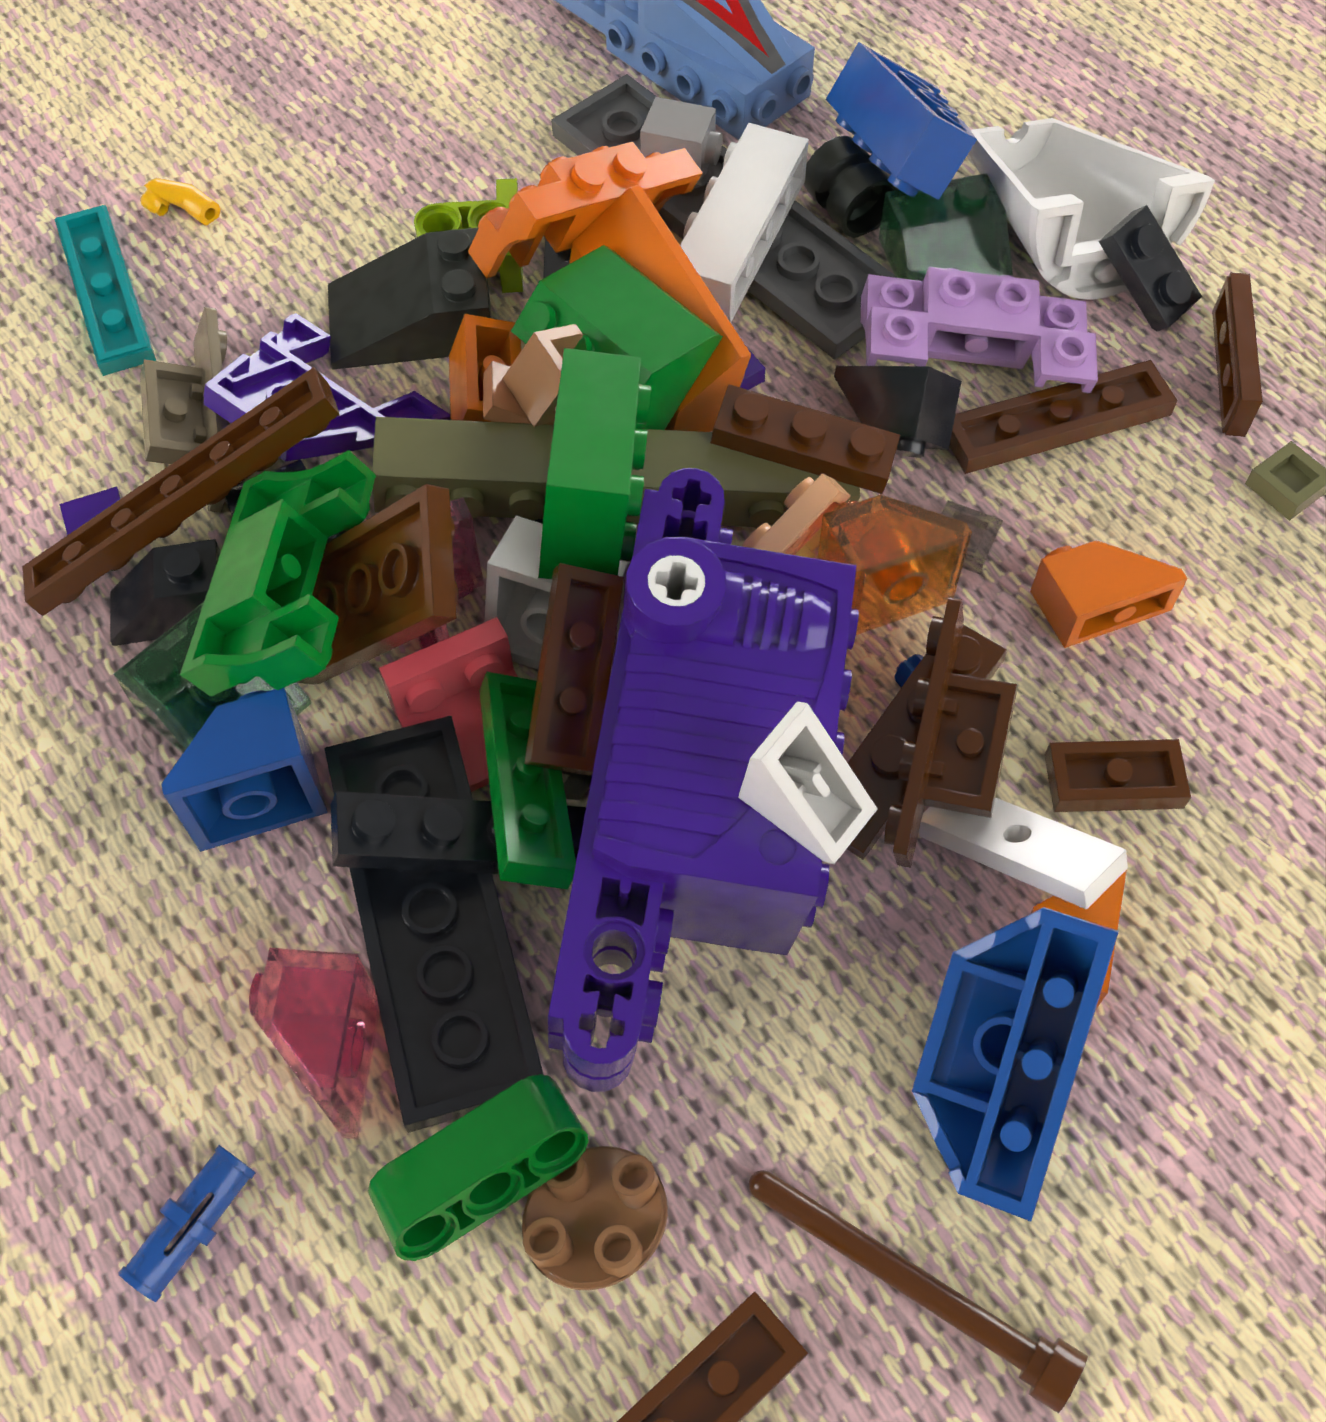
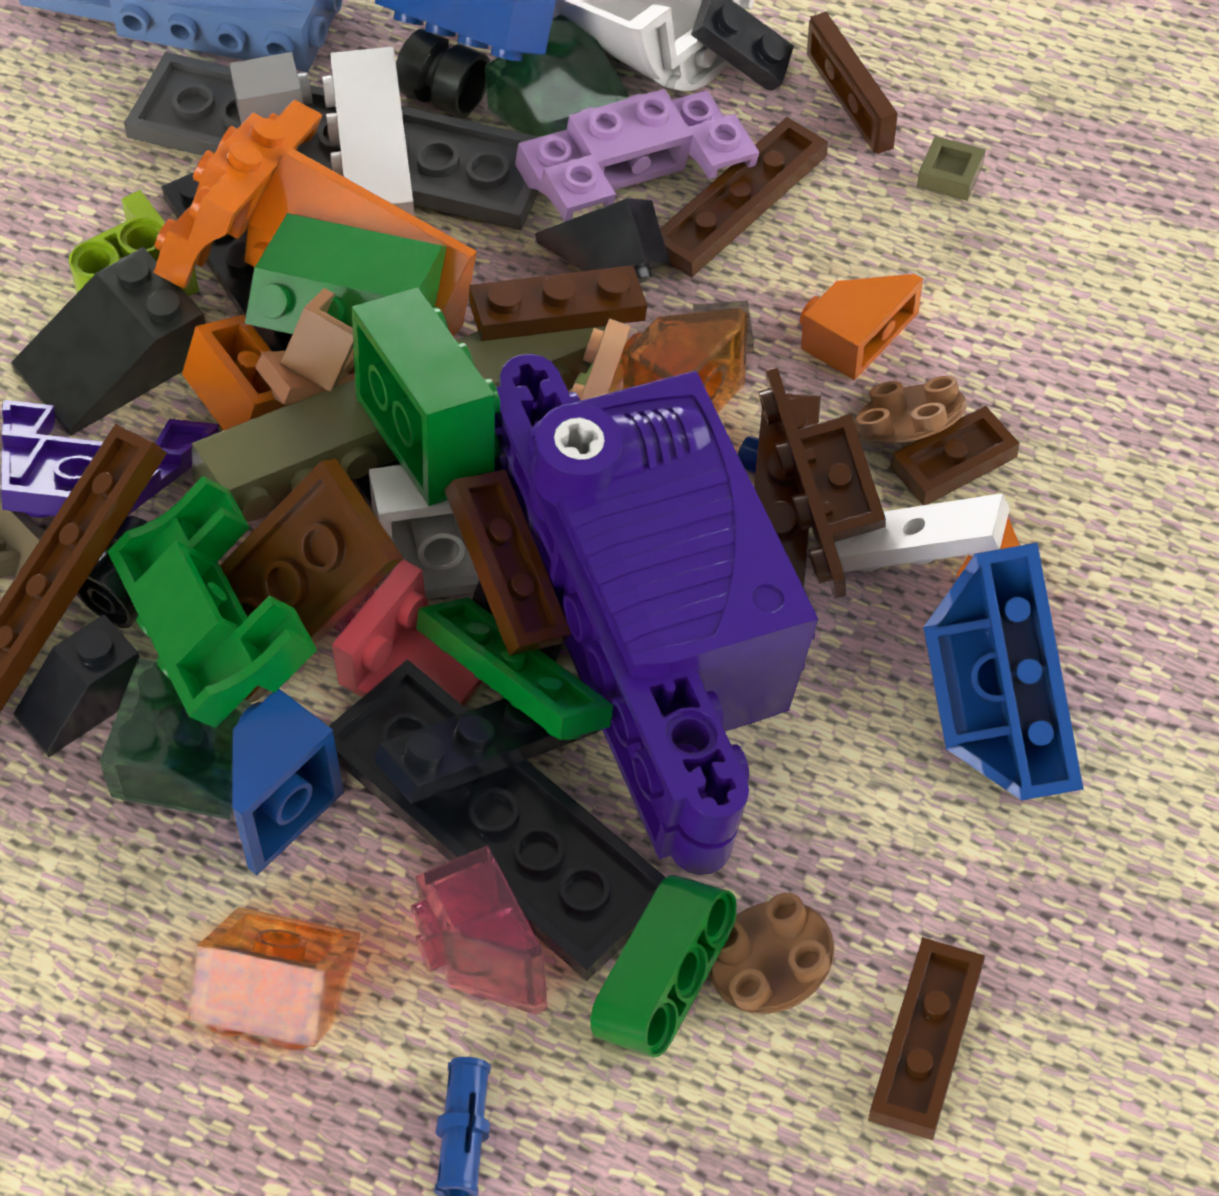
camera: 30 degrees left, 5 degrees down
(129, 961) = (271, 977): none -> clear orange slope
(807, 786) = (768, 540): white slope -> none
(1045, 1366) = (1147, 879): reddish brown piece -> none
(1095, 708) = (911, 411): none -> medium nougat dish

